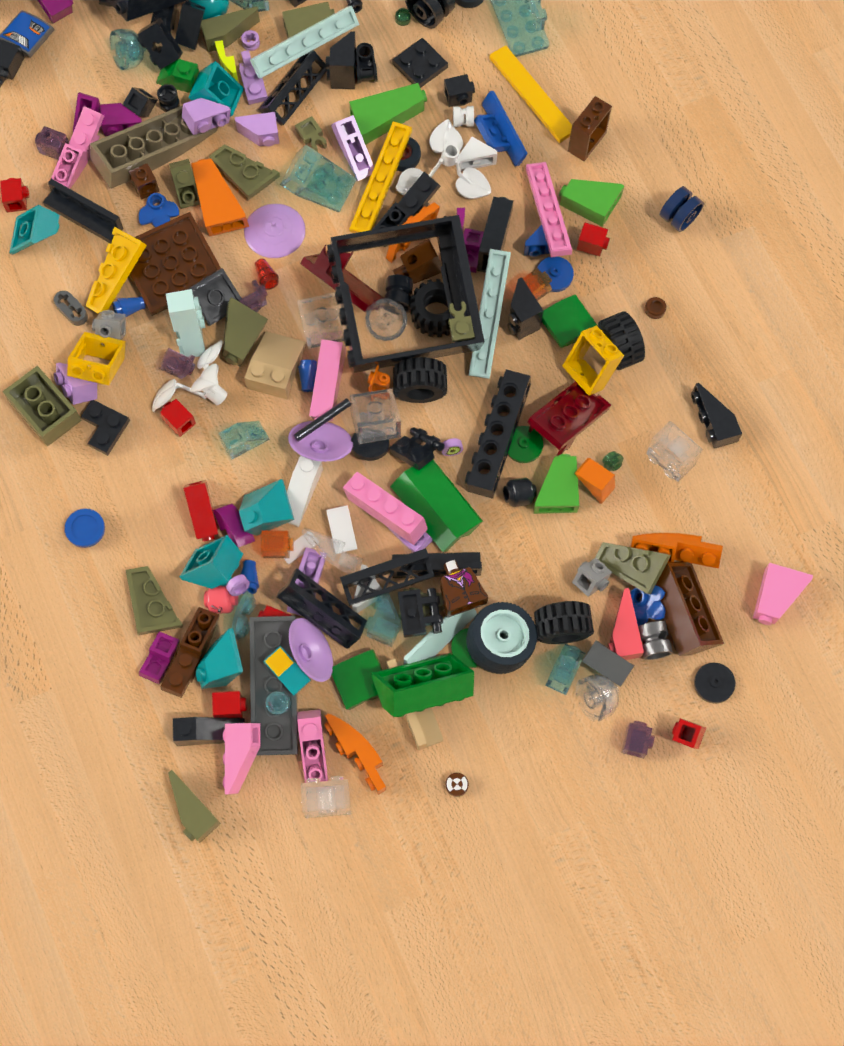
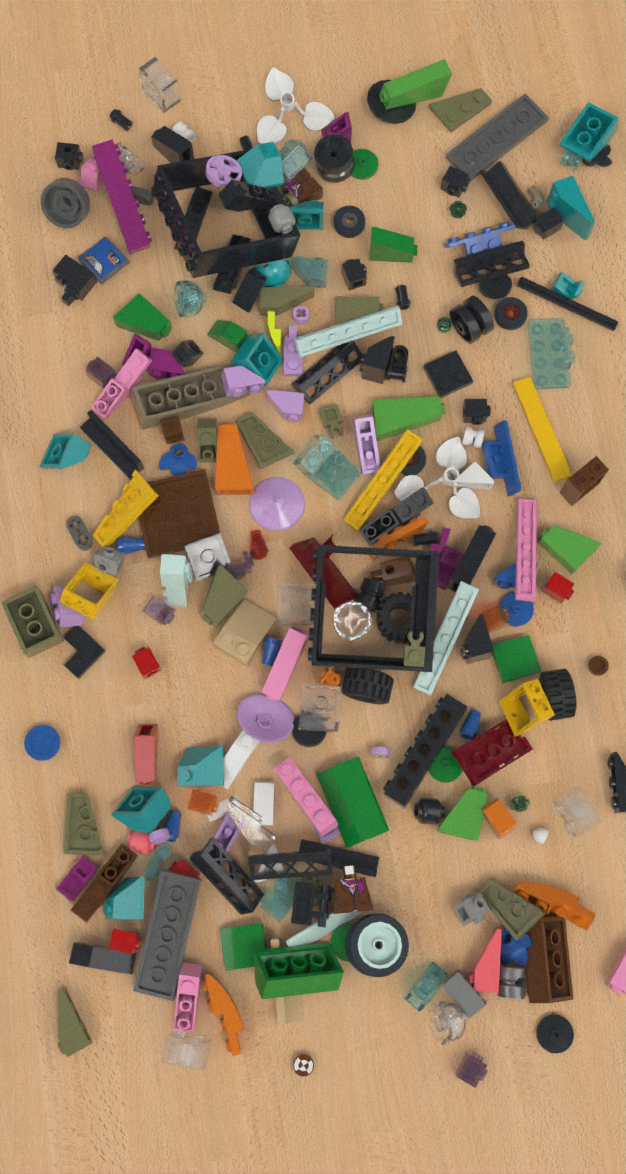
camera: 15 degrees right, 5 degrees up
(14, 194) = (56, 413): red brick -> none
(83, 77) = (143, 318): none -> green slope
(159, 33) = (217, 303): black brick -> none
(168, 97) = (210, 352): black wheel -> none
(206, 382) = (179, 643): white plant -> none
(229, 519) = (168, 770): magenta slope -> none
(241, 748) = (125, 983): bright pink slope -> none
(242, 437) = (199, 696): clear light blue slope -> none
(281, 703) = (169, 951): clear light blue wheel -> none
(287, 670) = (181, 927): teal tile -> none
(310, 650) = (207, 913): lavender hat -> none
(322, 419) = (271, 700): black bar -> none
(412, 452) = (342, 746): black plate -> none
(540, 396) = (470, 727): none -> blue cone
(563, 622) = (434, 947): black tyre -> none
(642, 487) = (540, 835): none -> white hinge
(688, 733) = (517, 1077): red brick -> none

